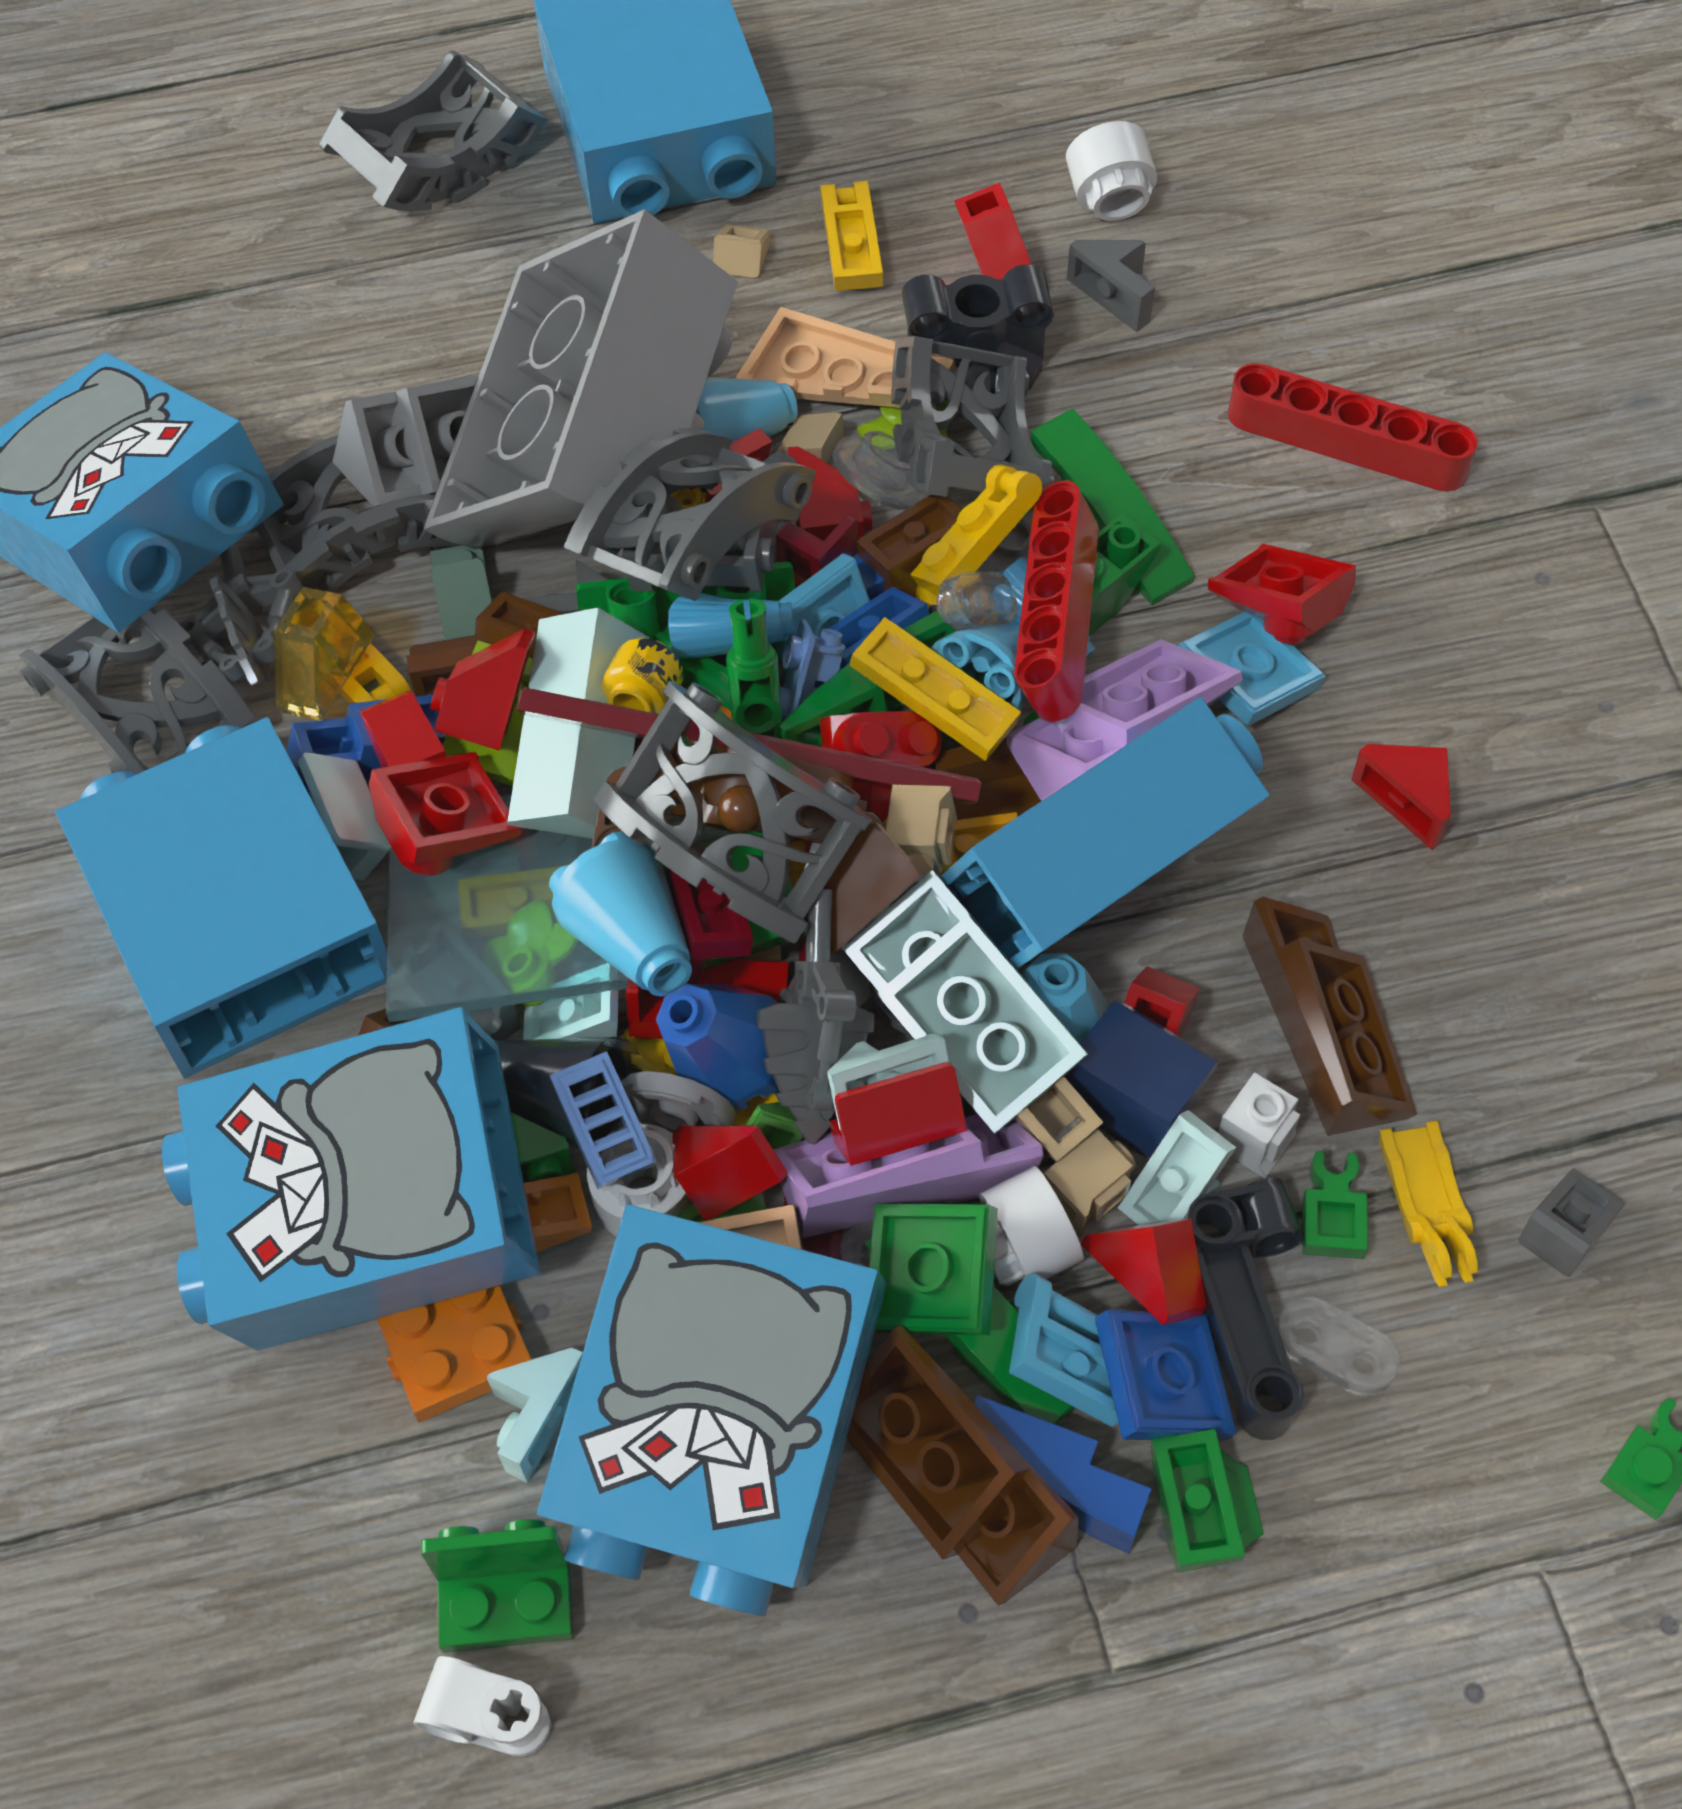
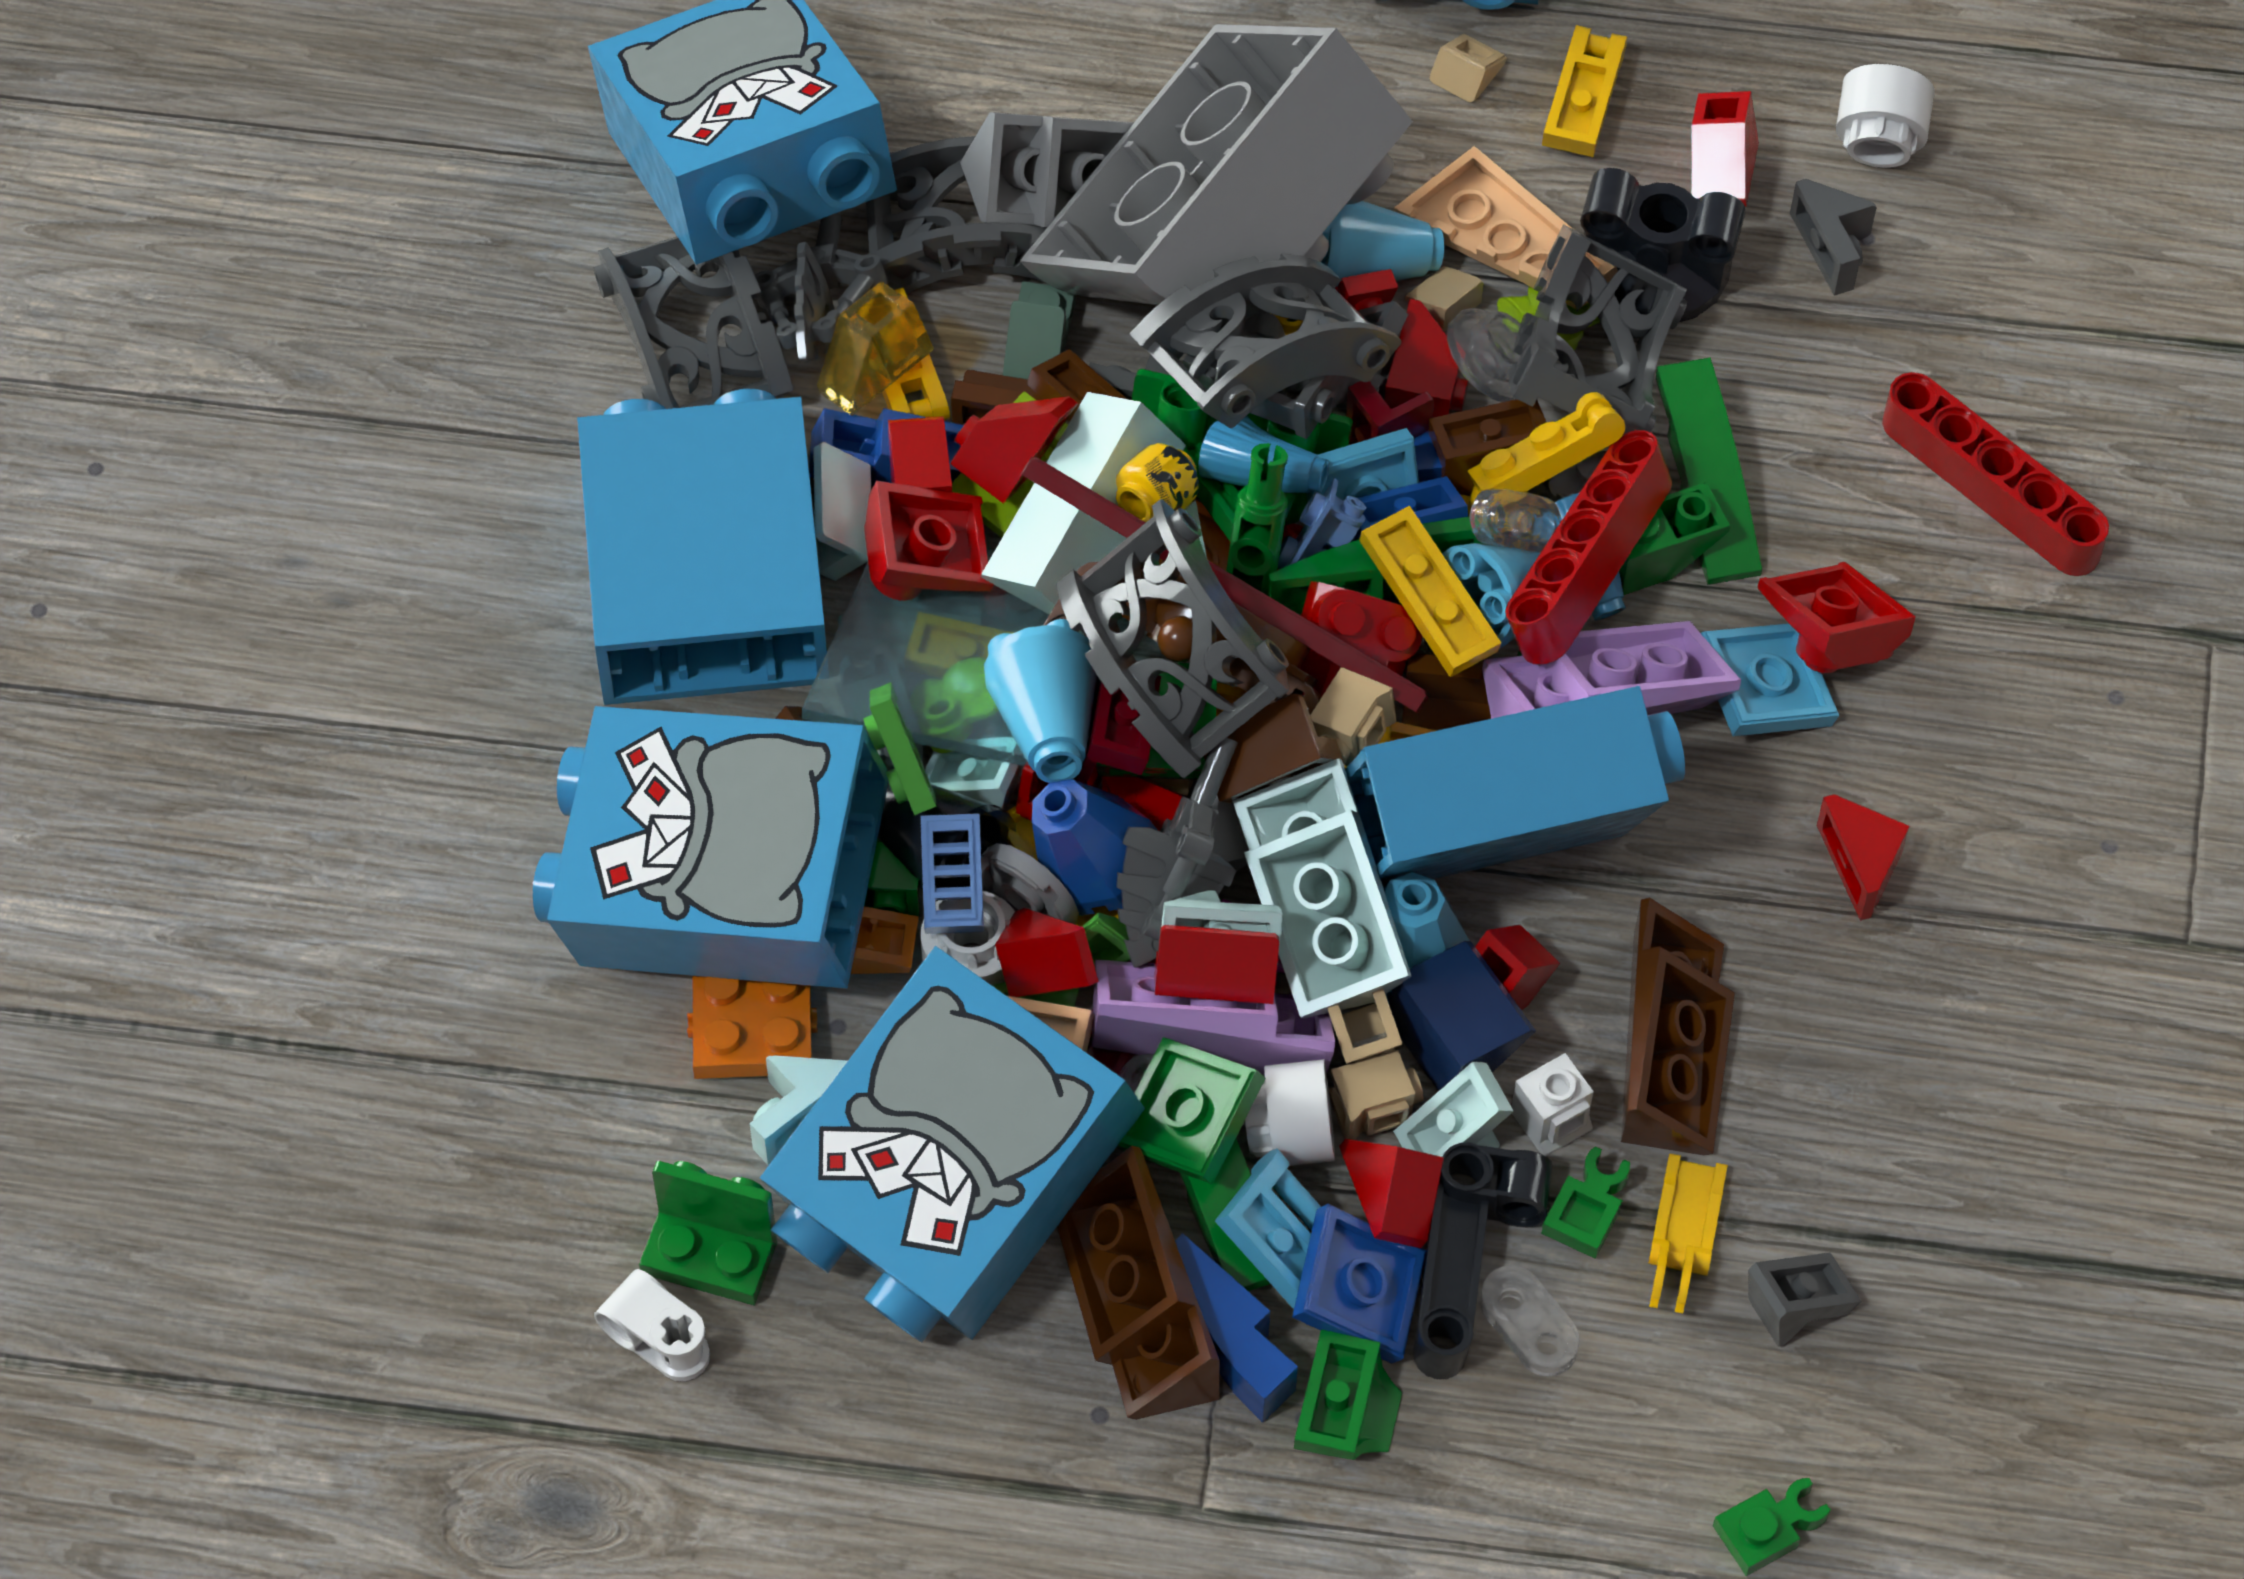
camera: 20 degrees right, 0 degrees up
(485, 1002) = (889, 730): none -> bright green wing

